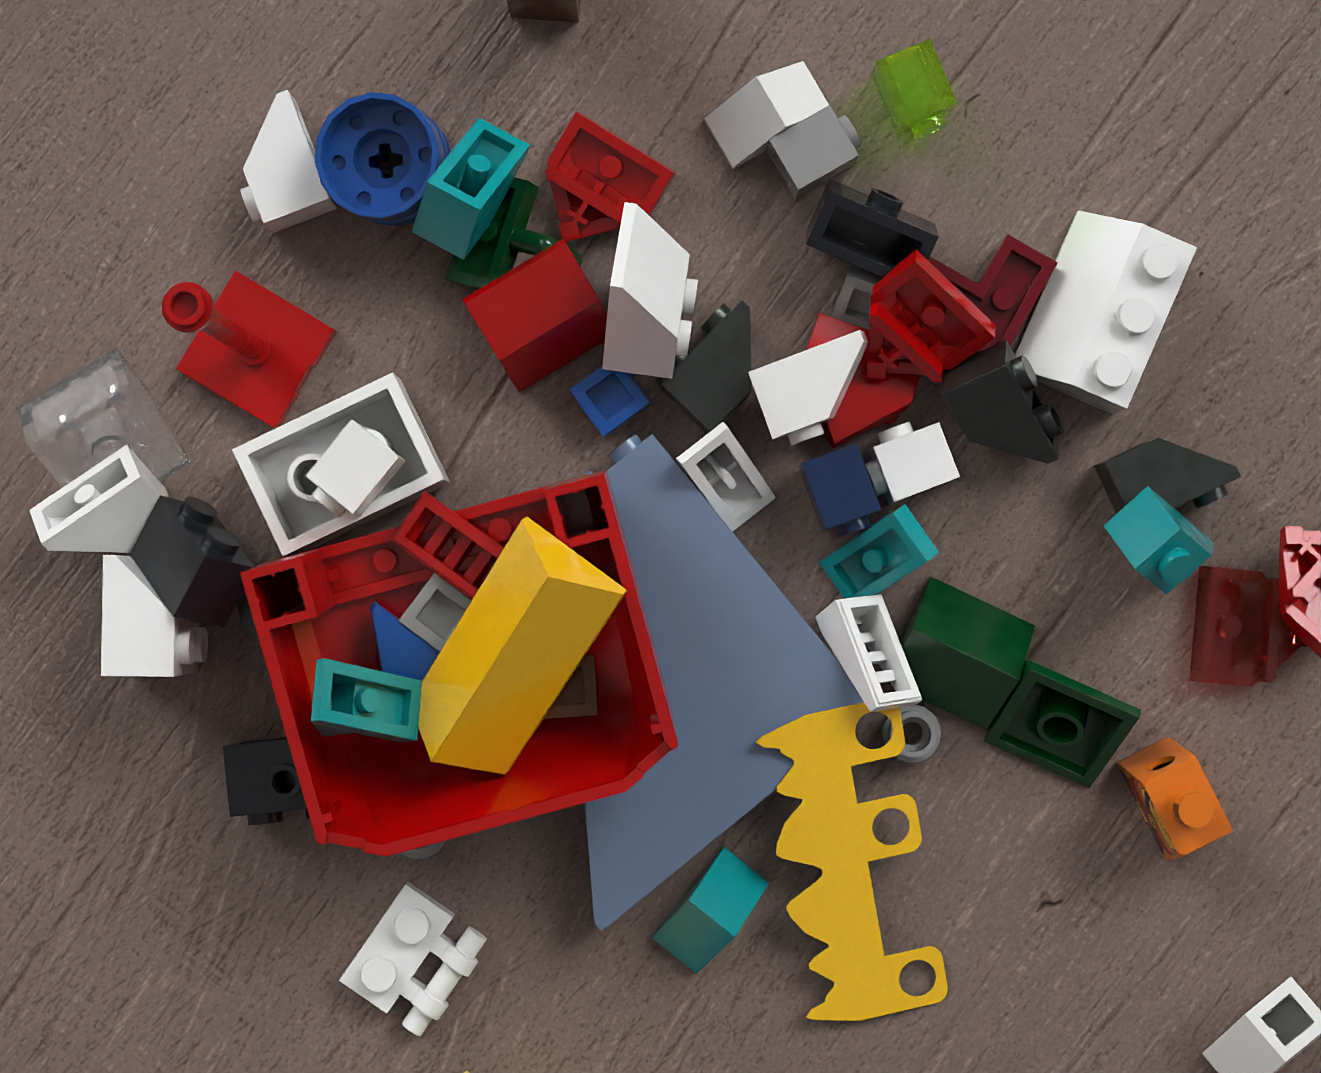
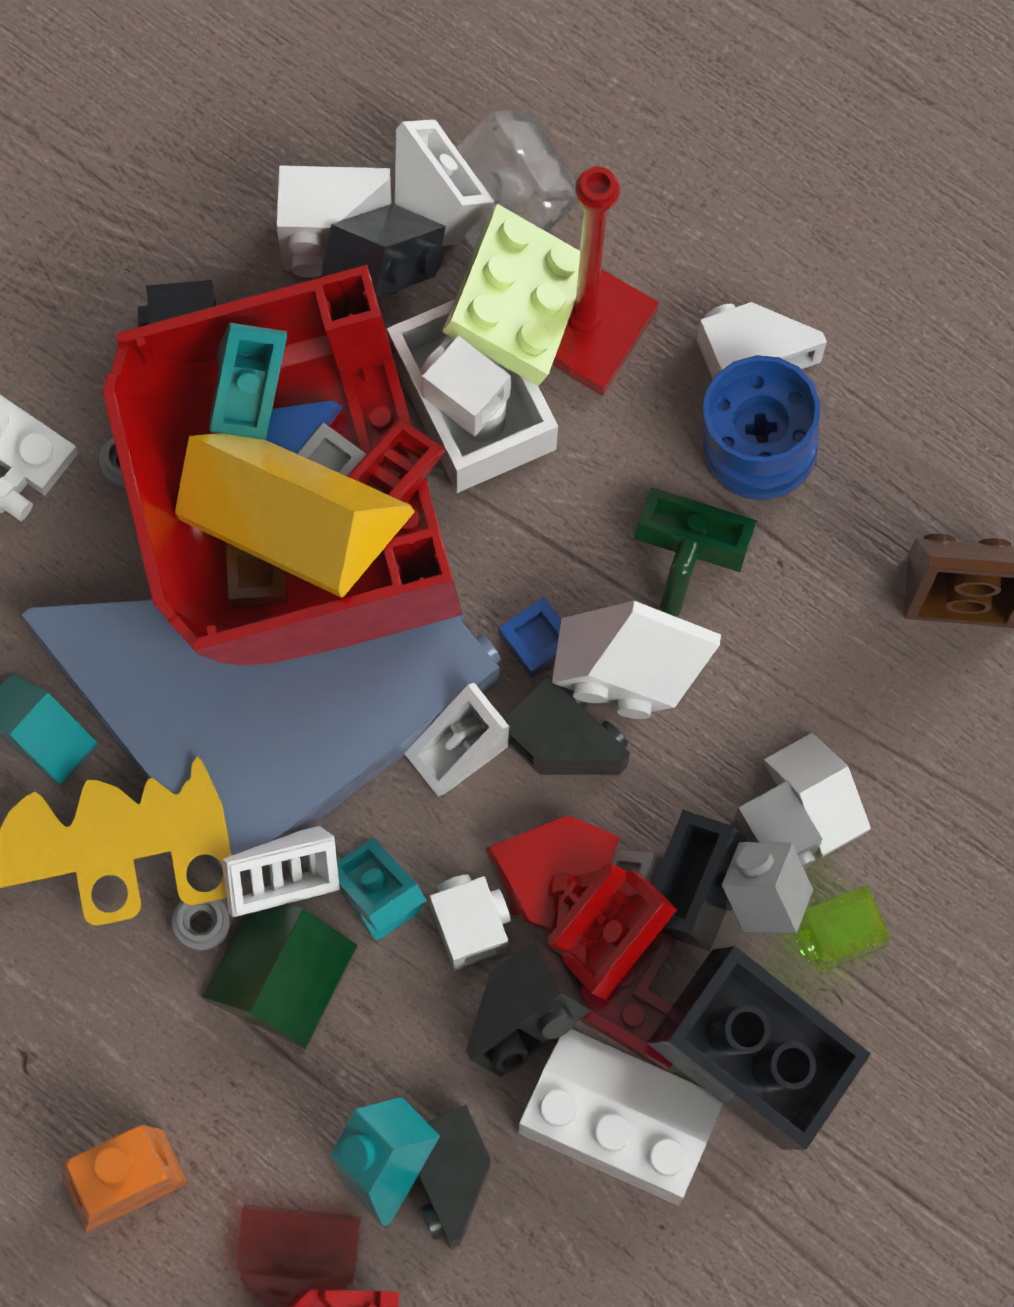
camera: 90 degrees right, 15 degrees down
(242, 417) = (516, 295): none -> yellowish green plate
(469, 188) = (735, 499): teal slope -> none
(539, 315) = (613, 559): red slope -> none
(596, 174) = (757, 632): red slope -> none
(807, 386) = (543, 812): white slope -> none
(840, 490) = (442, 847): dark blue brick -> none
(885, 159) = (767, 887): none -> light grey brick
(1046, 171) = (759, 1048): none -> black brick
(1061, 724) = (207, 1065): dark green slope -> none

